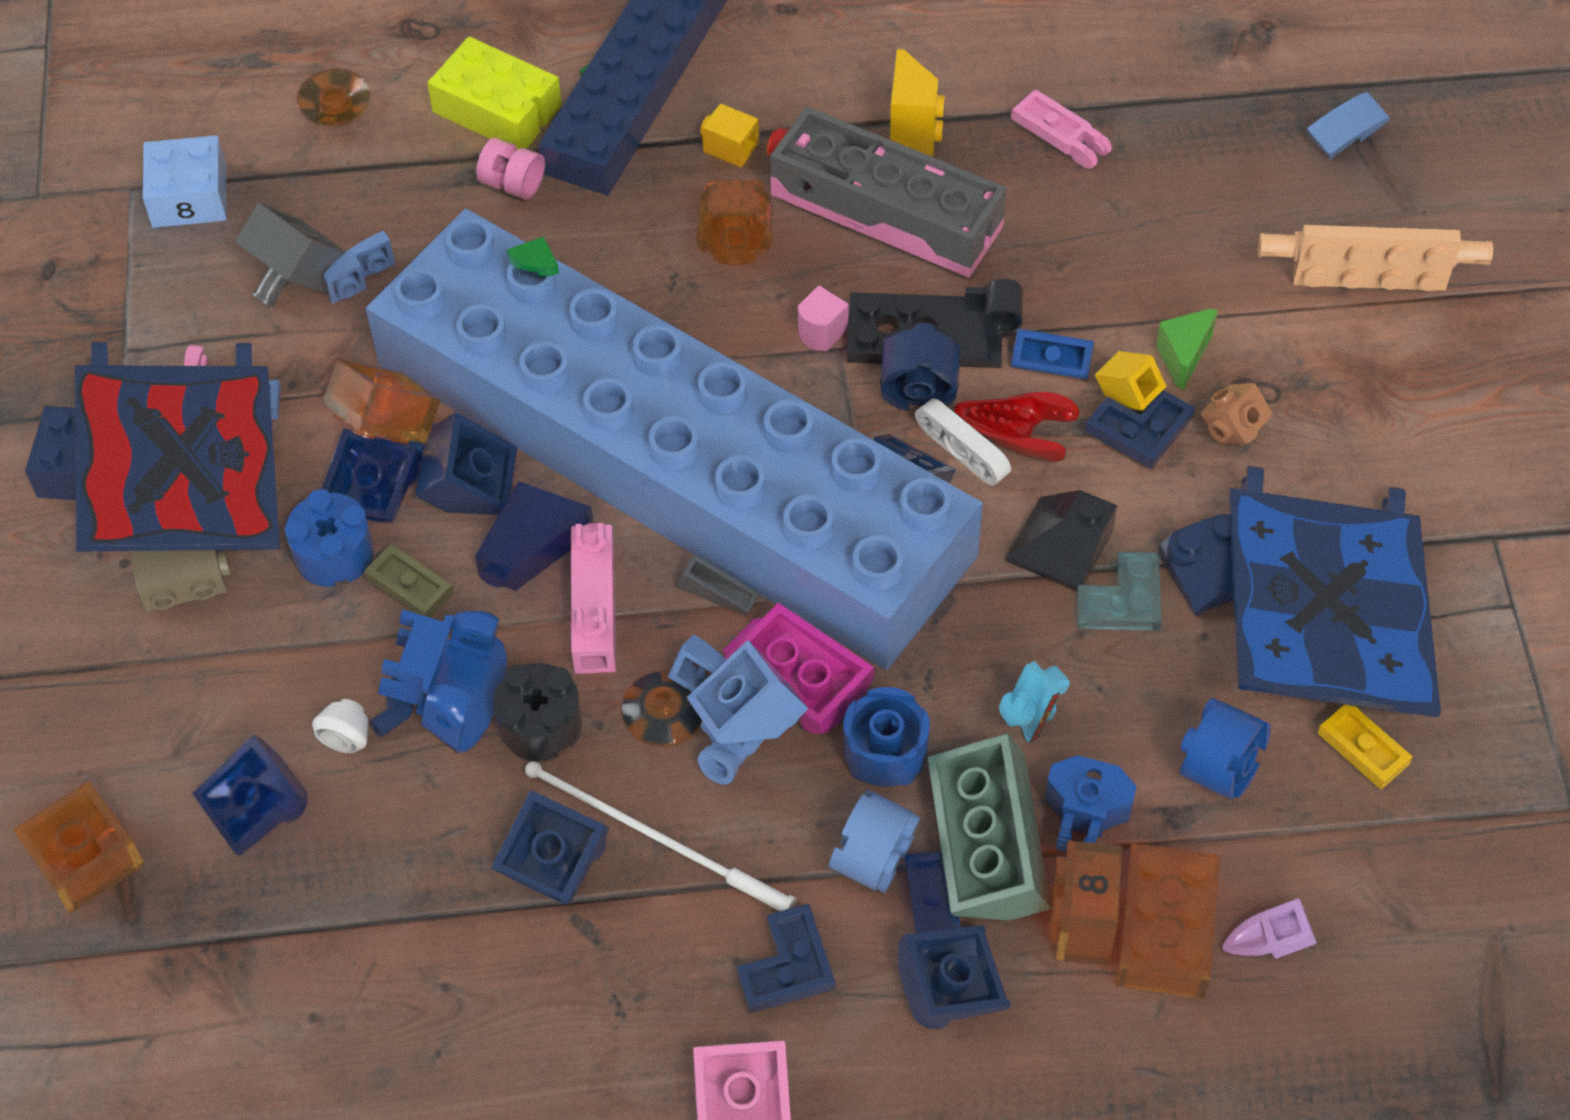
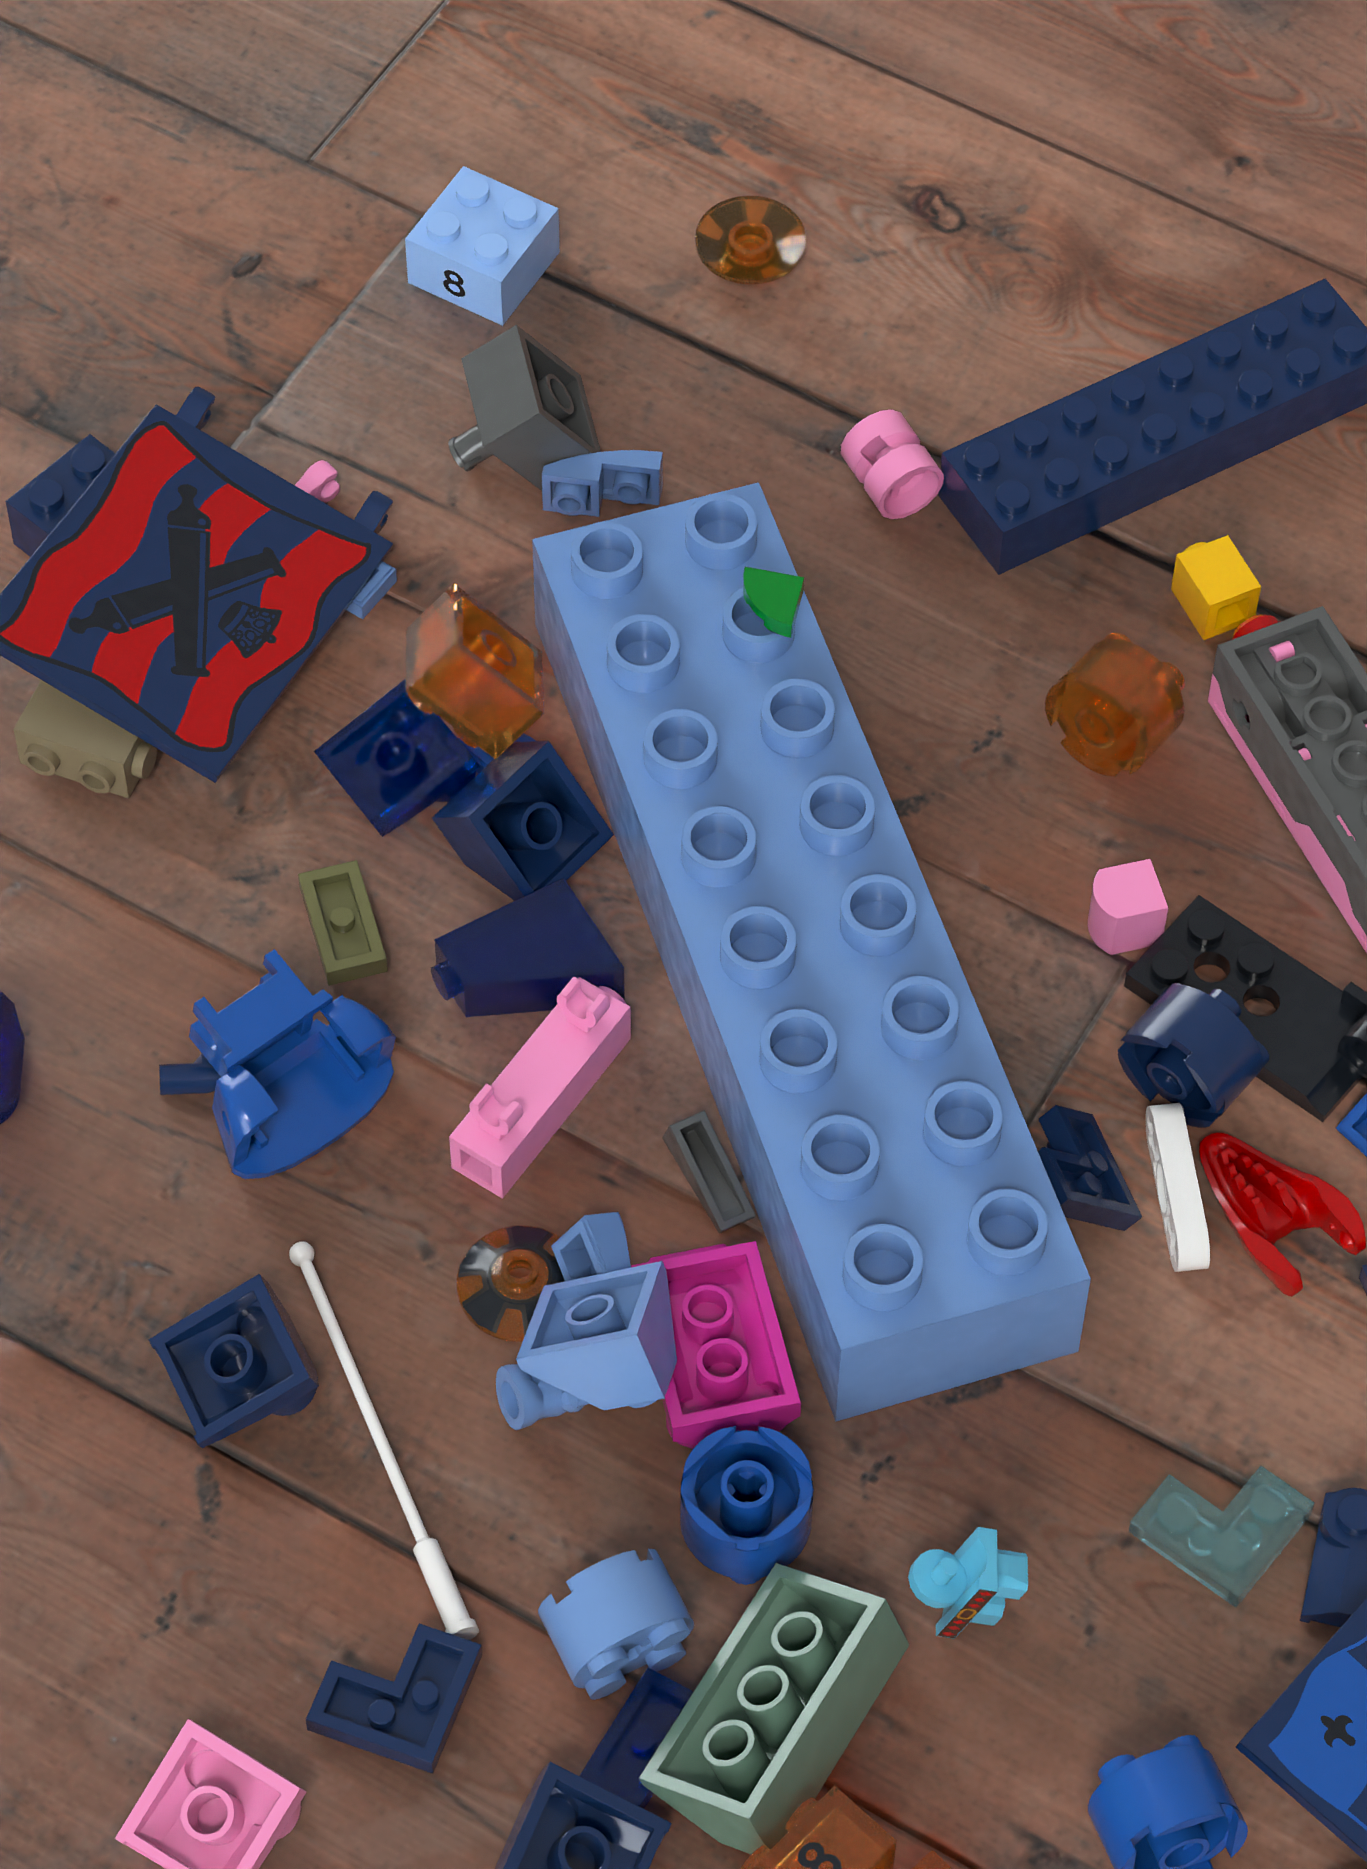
camera: 35 degrees right, 0 degrees up
(329, 538) = (289, 807): blue brick -> none
(342, 726) = (121, 1050): white cone -> none
(494, 93) = (948, 347): neon yellow piece -> none
(537, 711) = (357, 1183): black brick -> none
(1064, 537) = (1205, 1403): black slope -> none
(1087, 802) = (937, 1759): blue hinge -> none

